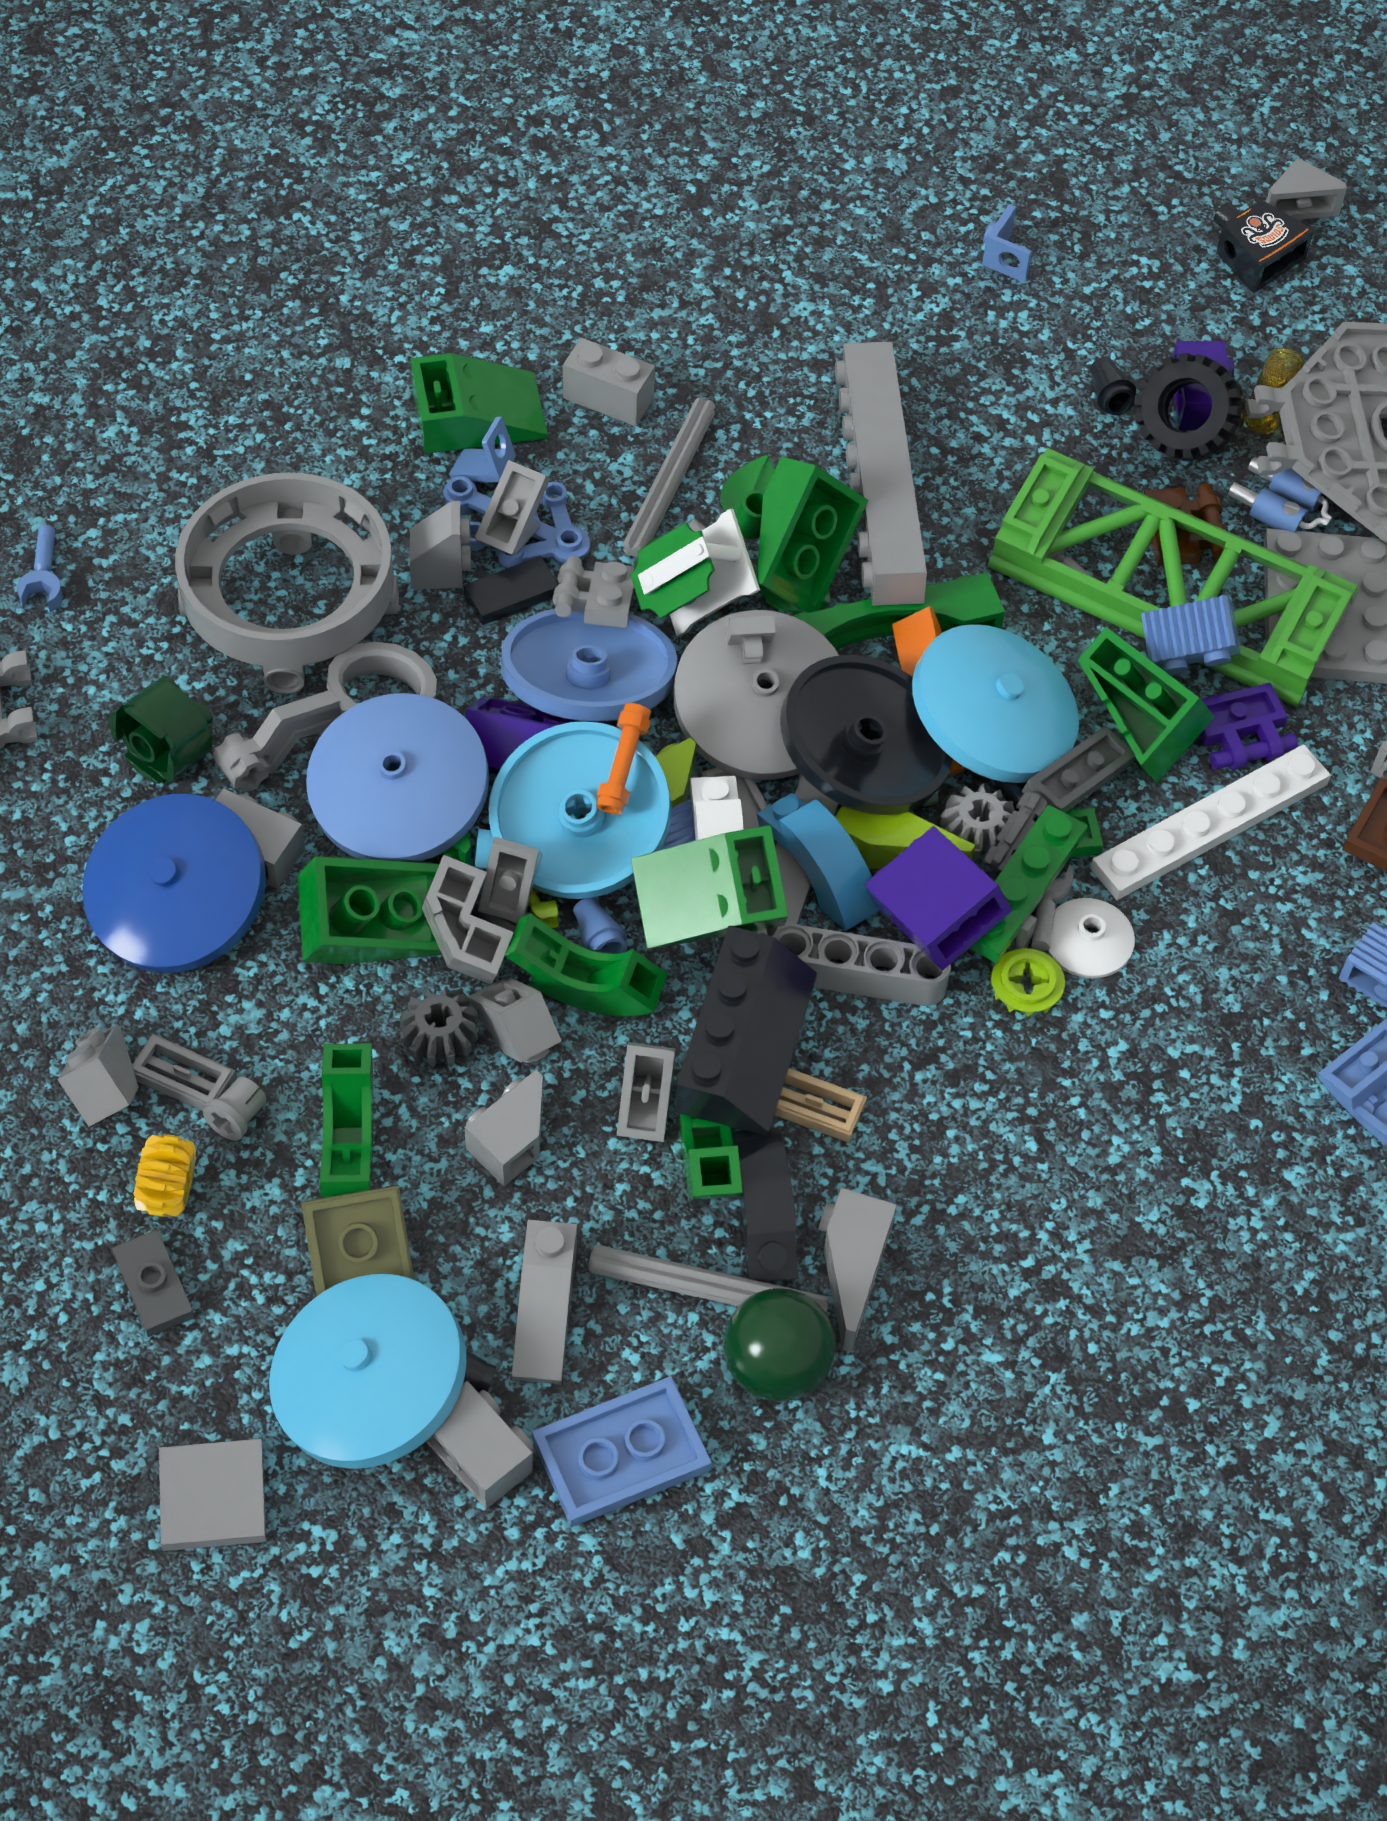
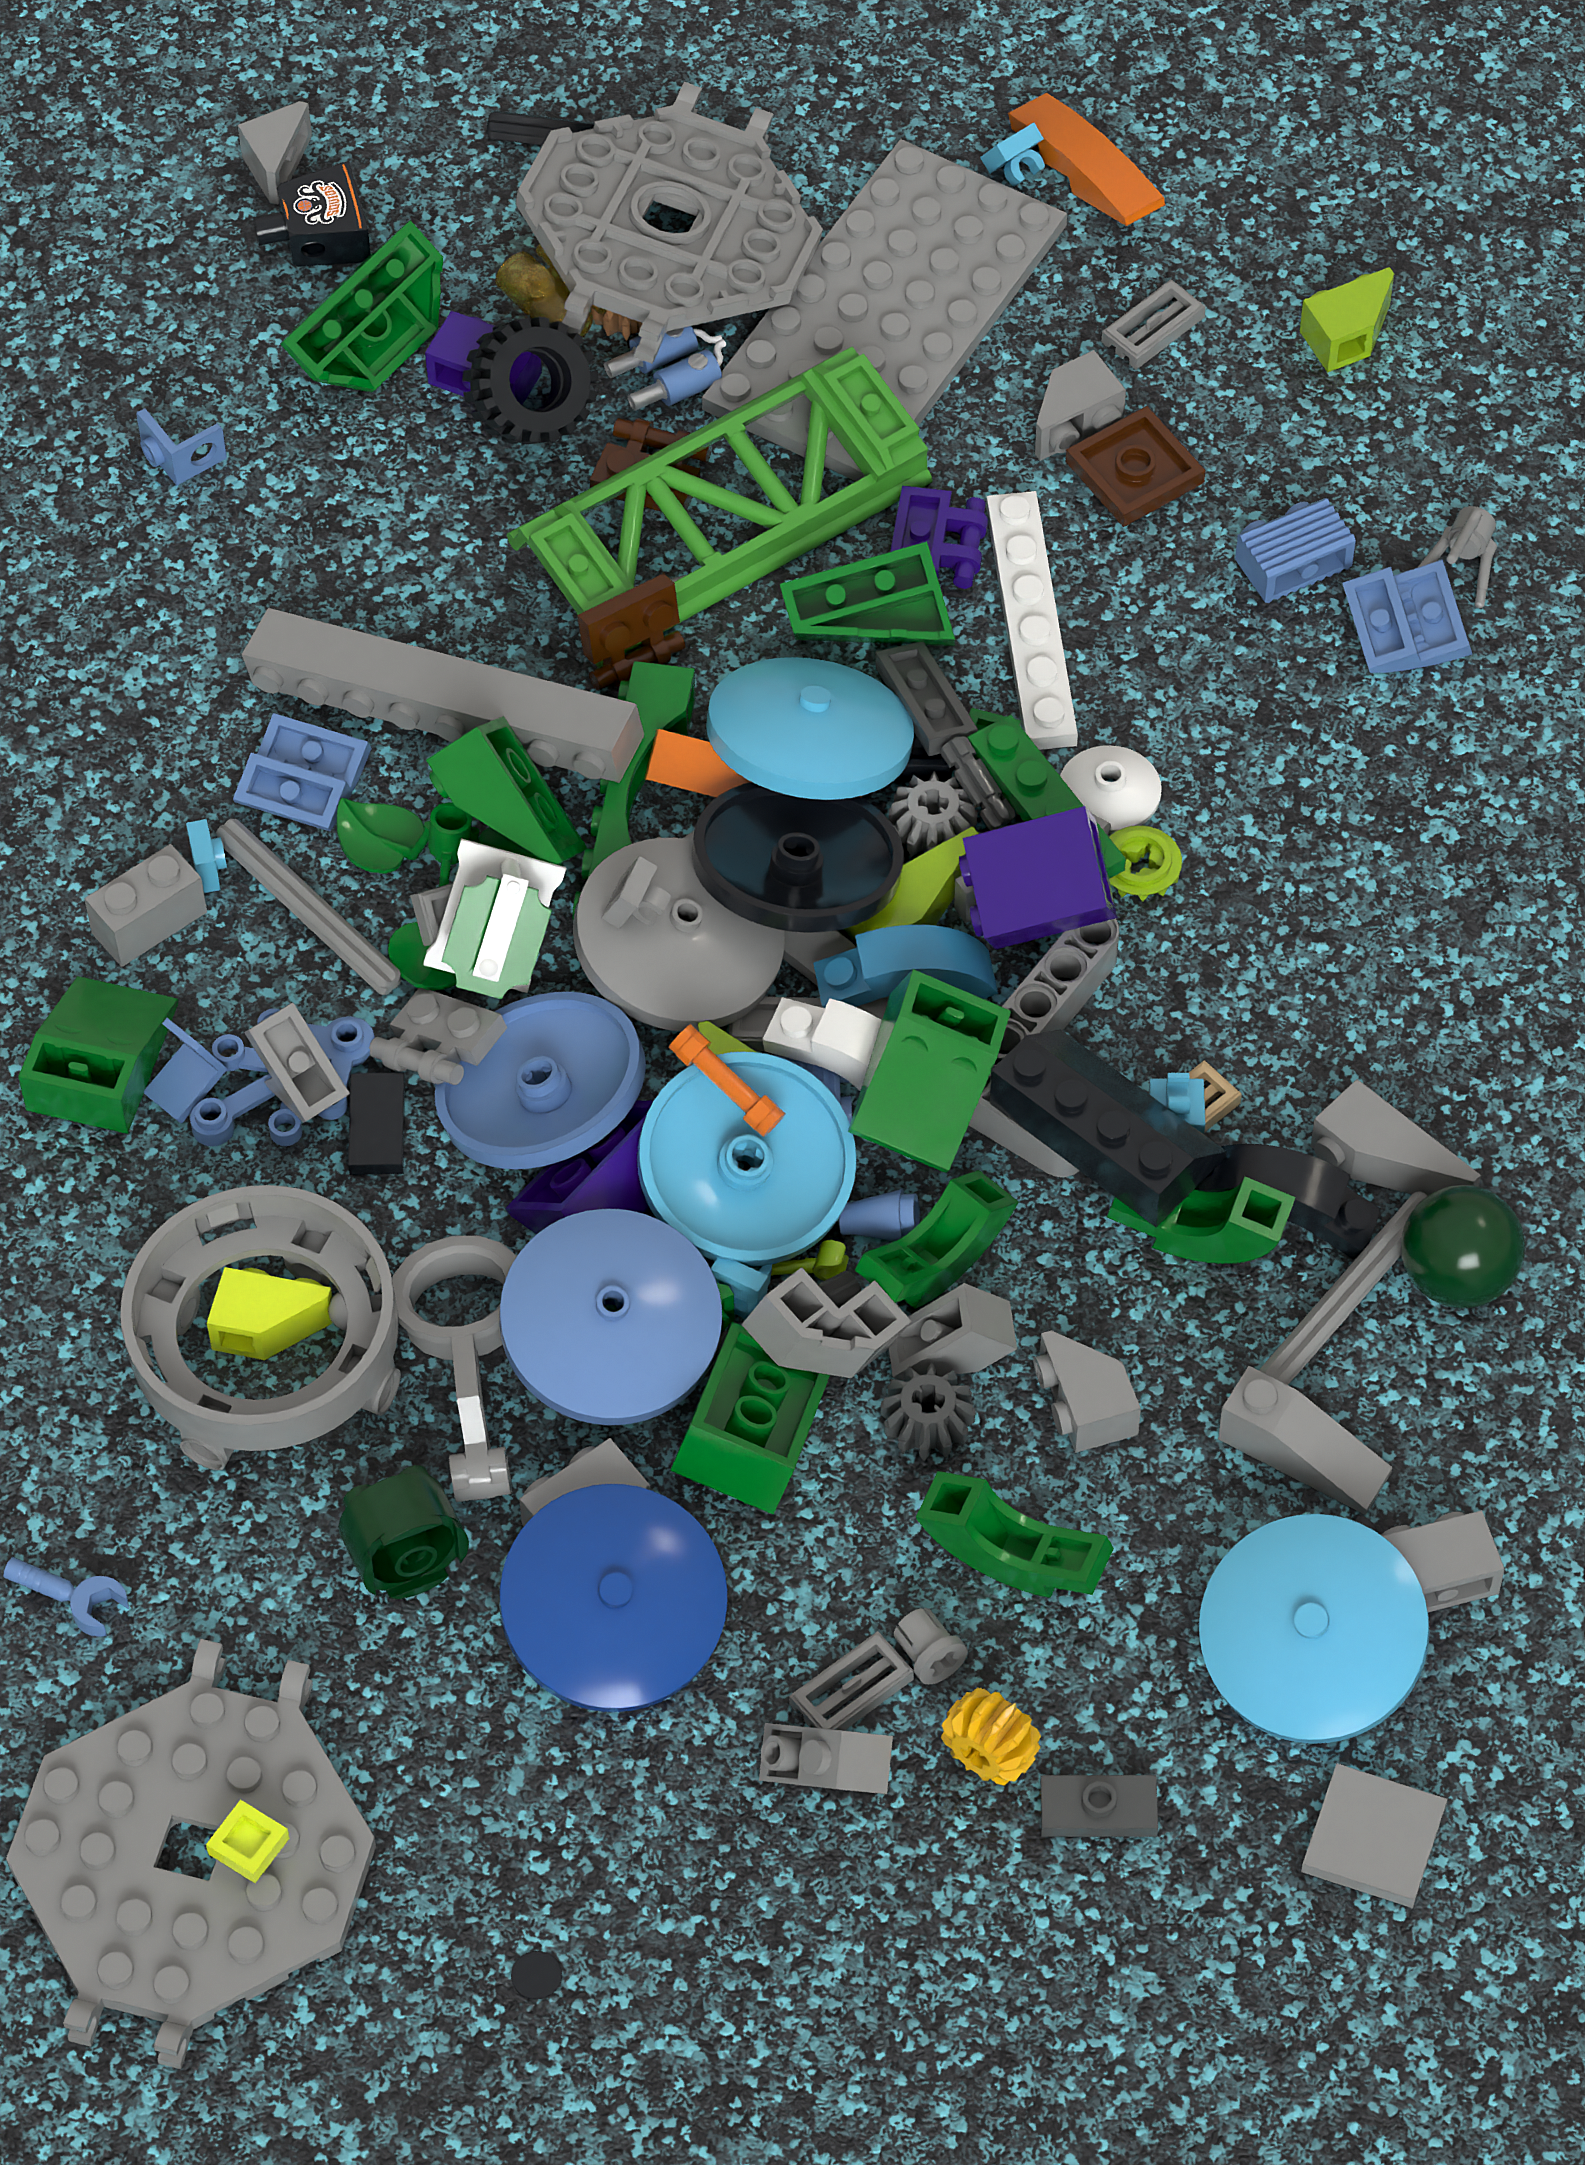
camera: 60 degrees left, 0 degrees up
(311, 579) = (265, 1313): none -> neon yellow slope
(356, 1236) = (1155, 1583): olive plate -> none
(438, 551) = (299, 1150): light grey slope -> none
(509, 879) = (801, 1242): light grey slope -> none
(621, 1451) = (1500, 1440): medium blue plate -> none
(646, 1092) = (1106, 1251): light grey slope -> none
(670, 398) = (206, 854): none -> medium azure plate
(780, 426) = (302, 772): none -> medium blue slope
(808, 1091) = (1182, 1097): none -> medium azure tile
(1020, 553) = (625, 621): none -> reddish brown plate
(1112, 387) = (435, 443): black cone -> none
(1187, 300) = (372, 315): none -> green wedge
(1191, 634) = (823, 518): medium blue brick -> none

